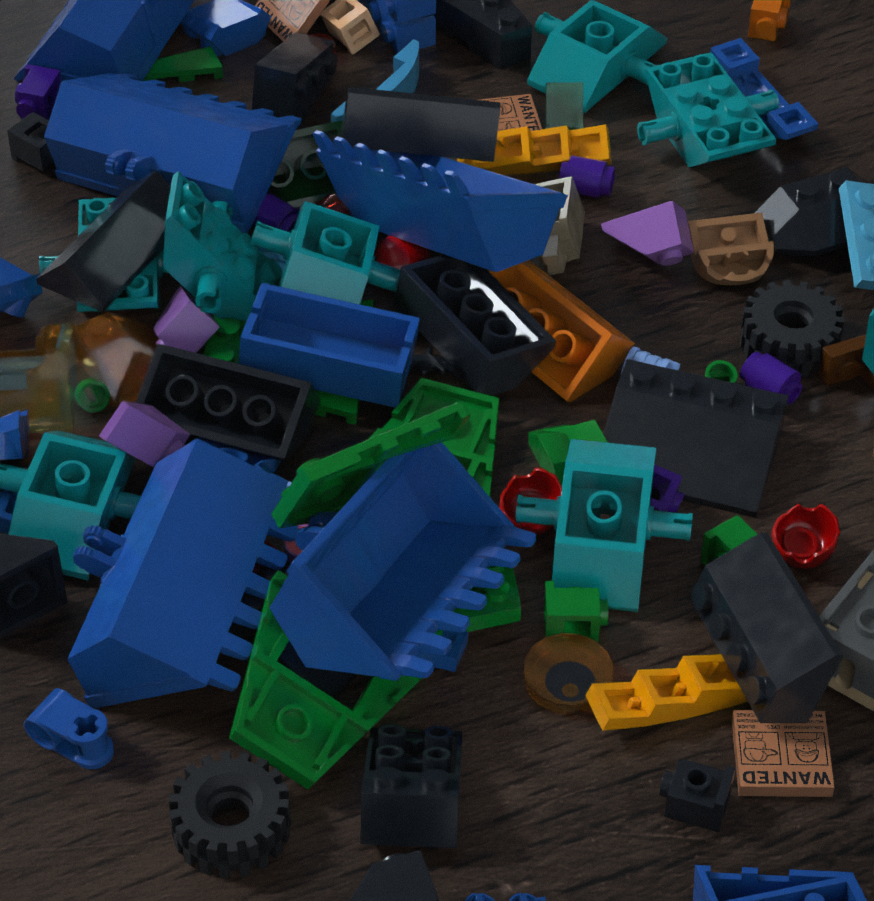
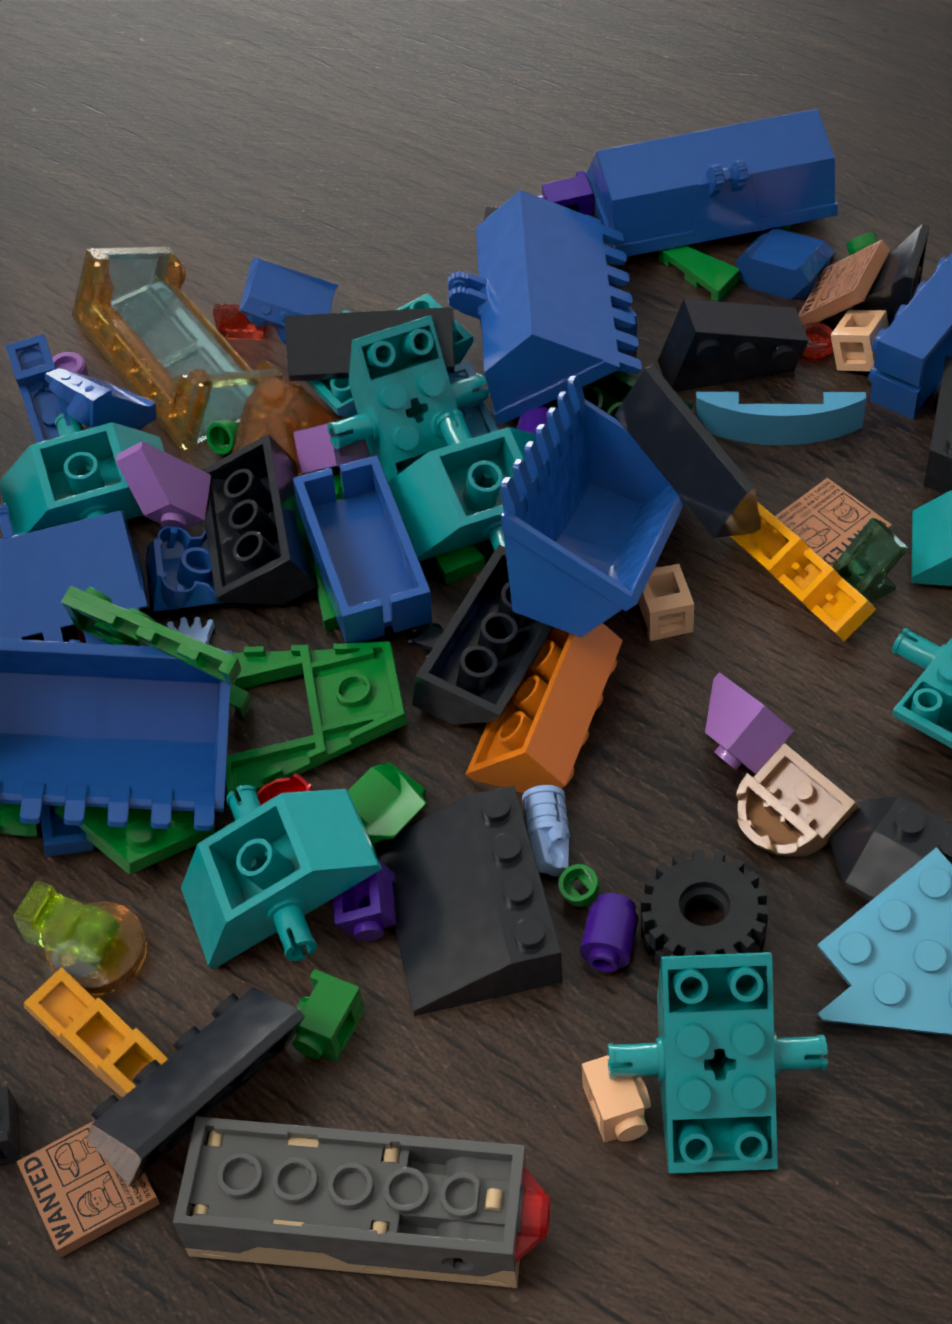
camera: 65 degrees right, 5 degrees up
(551, 668) = (65, 924): none -> clear neon green leg
(567, 230) = (688, 638): dark tan hinge -> none
(574, 611) = (162, 910): green brick -> none
(590, 176) = (798, 631): dark purple brick -> none
(806, 535) = (386, 1068): red hair -> none

